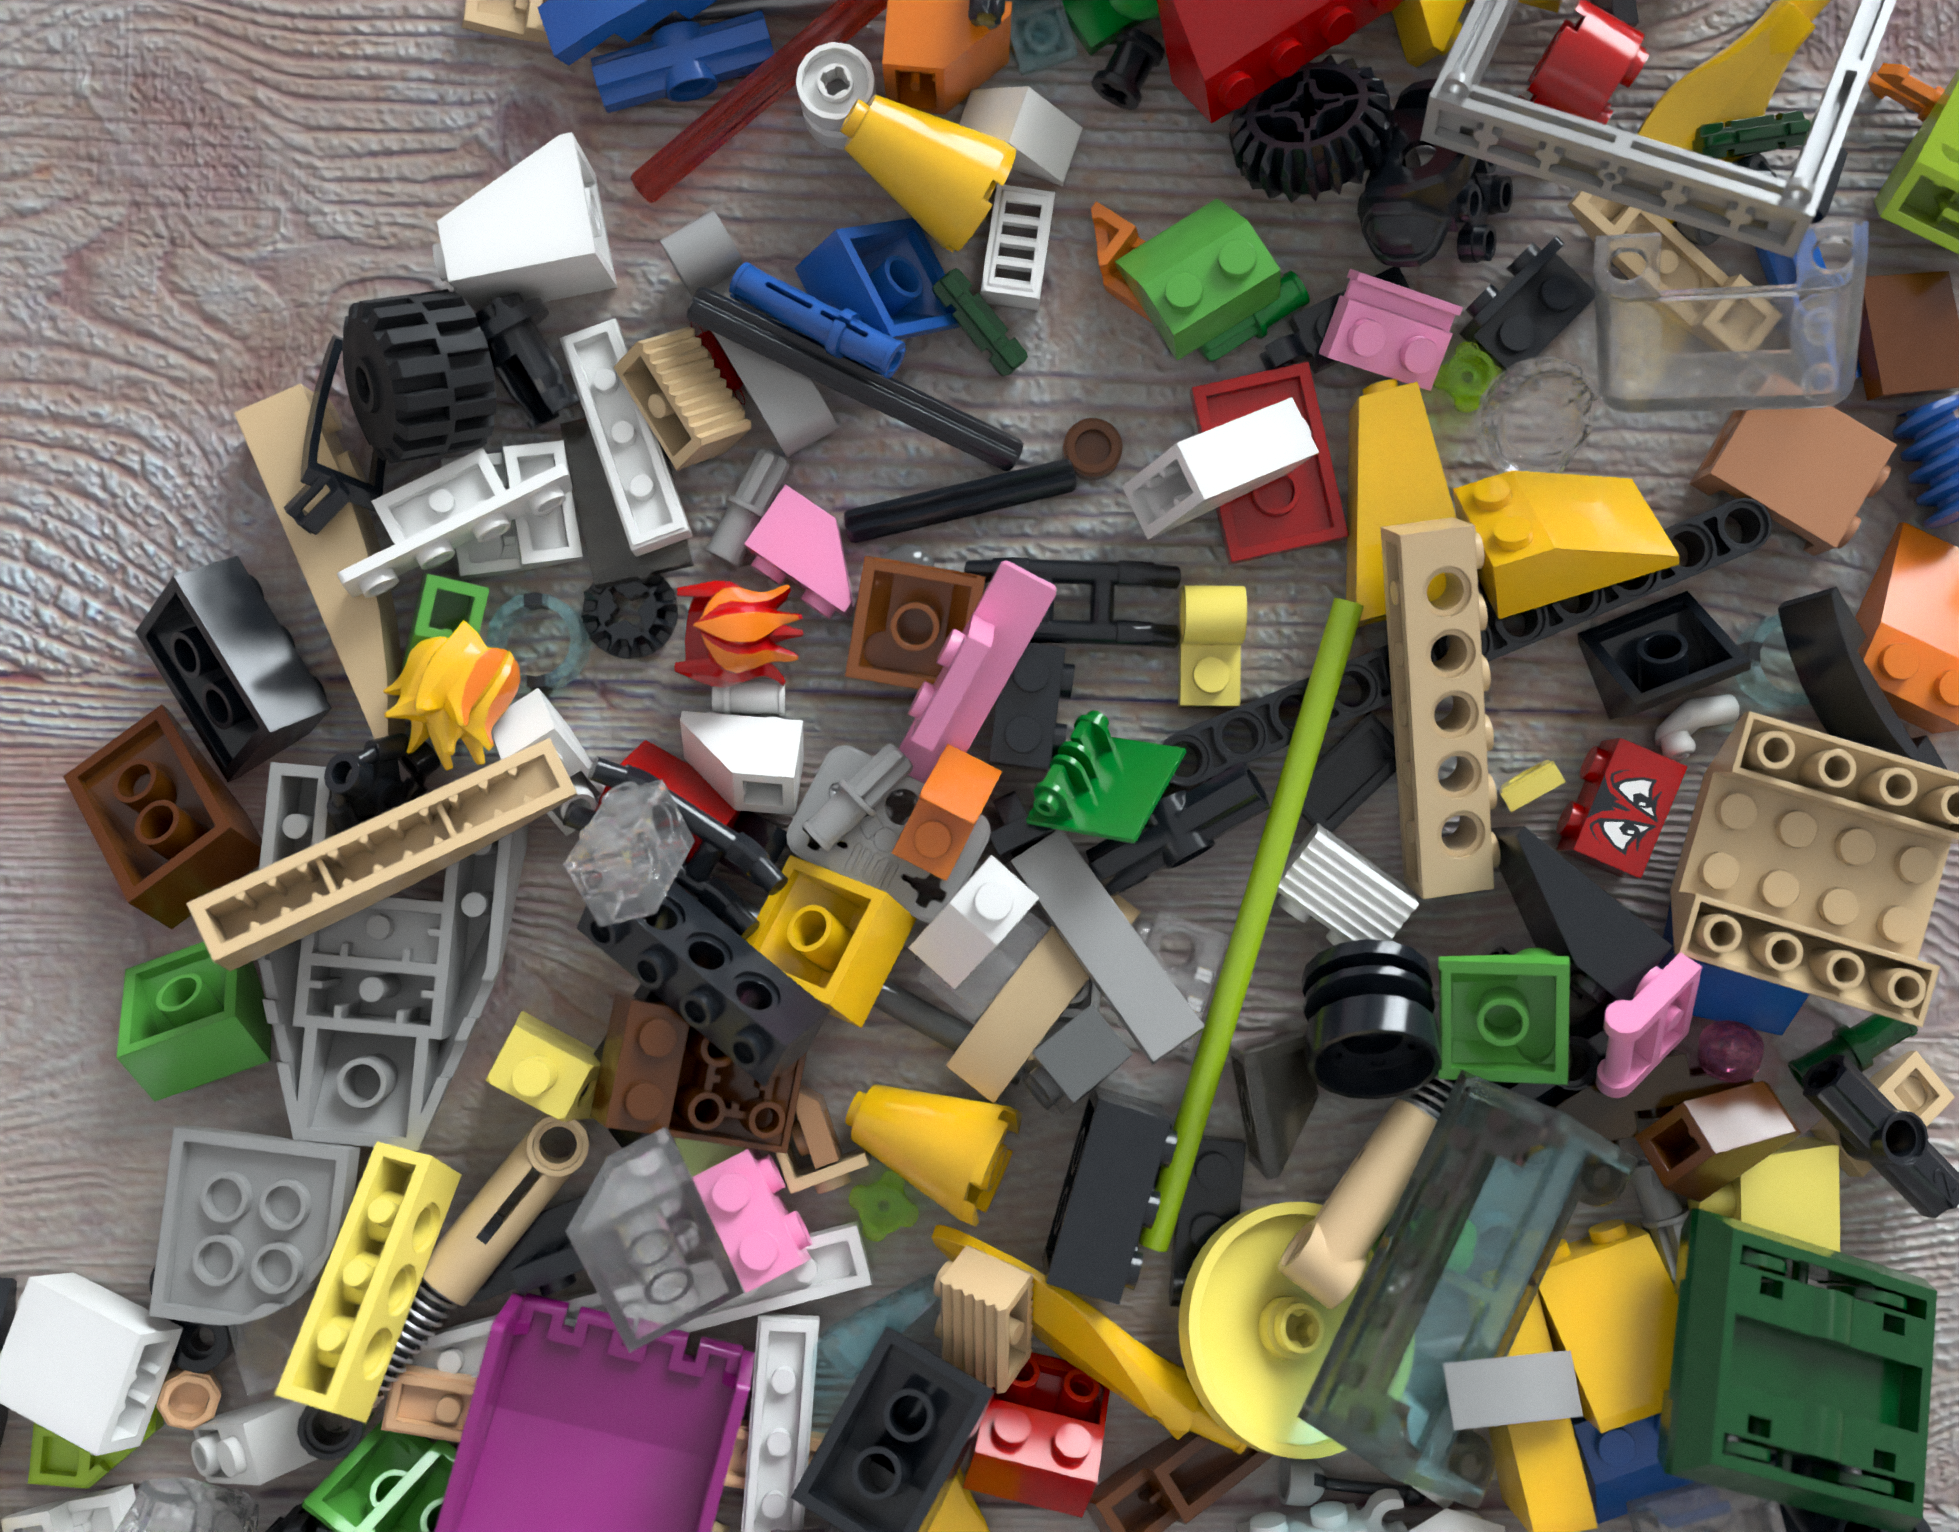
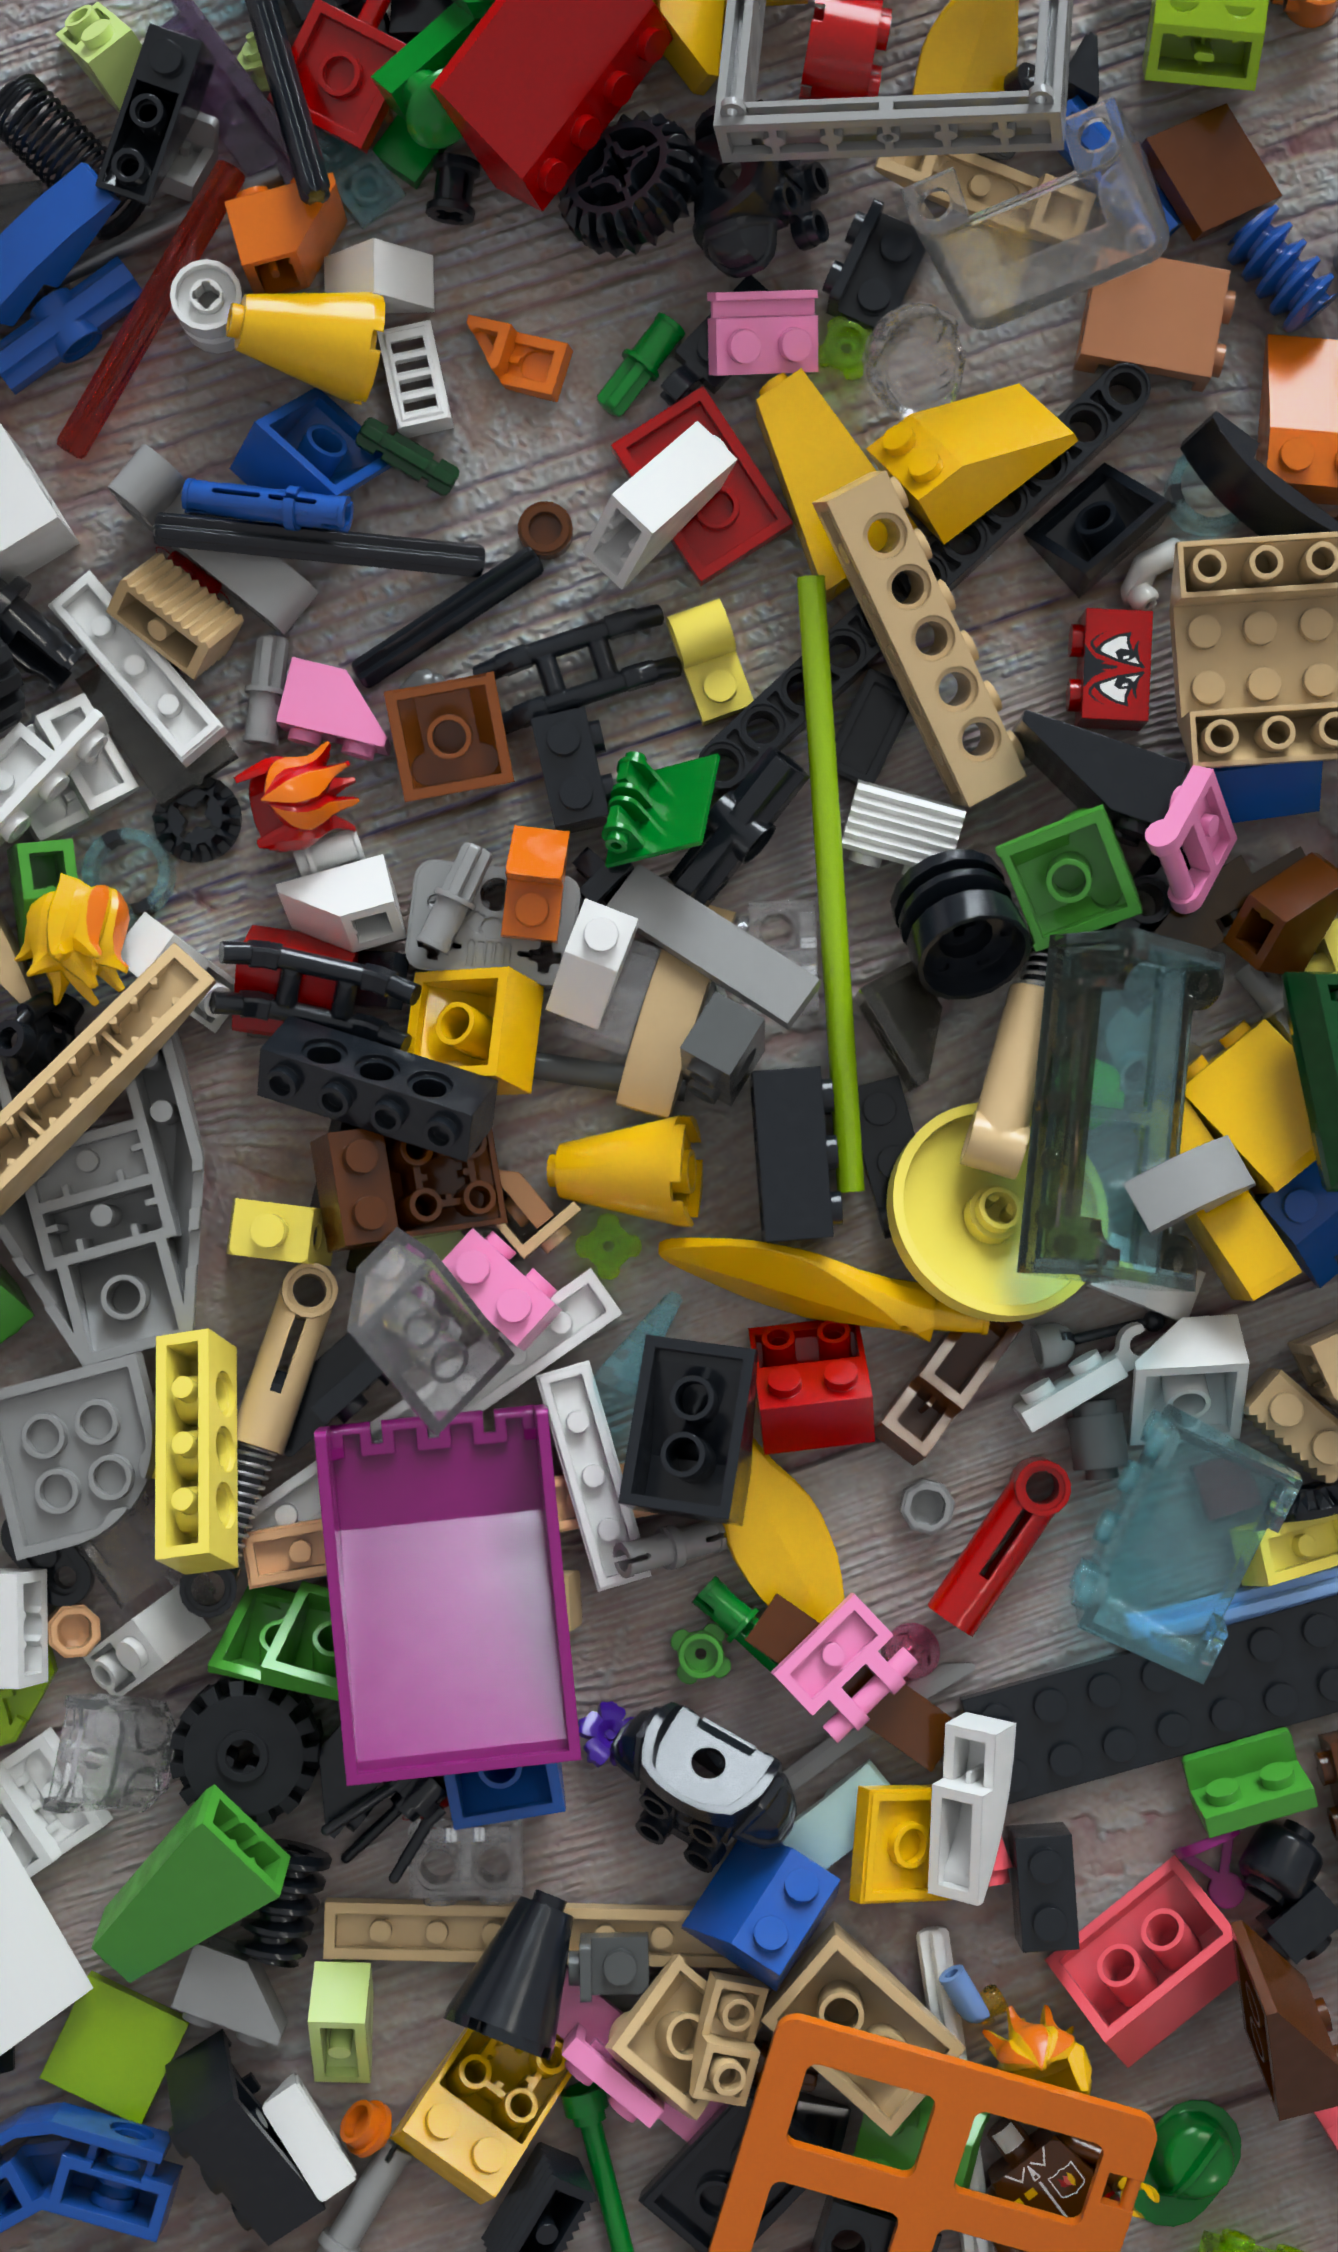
camera: 20 degrees left, 0 degrees up
(630, 852) = (280, 1005): clear brick -> none
(975, 667) = (513, 749): bright pink bracket -> none
(985, 1317) = (728, 1296): tan brick -> none
(1201, 276) = (583, 347): bright green slope -> none
(1531, 784) = (1028, 677): light yellow tile -> none
(1730, 1051) = (1277, 839): clear pink tile -> none
(1751, 135) = (1001, 54): dark green axle -> none

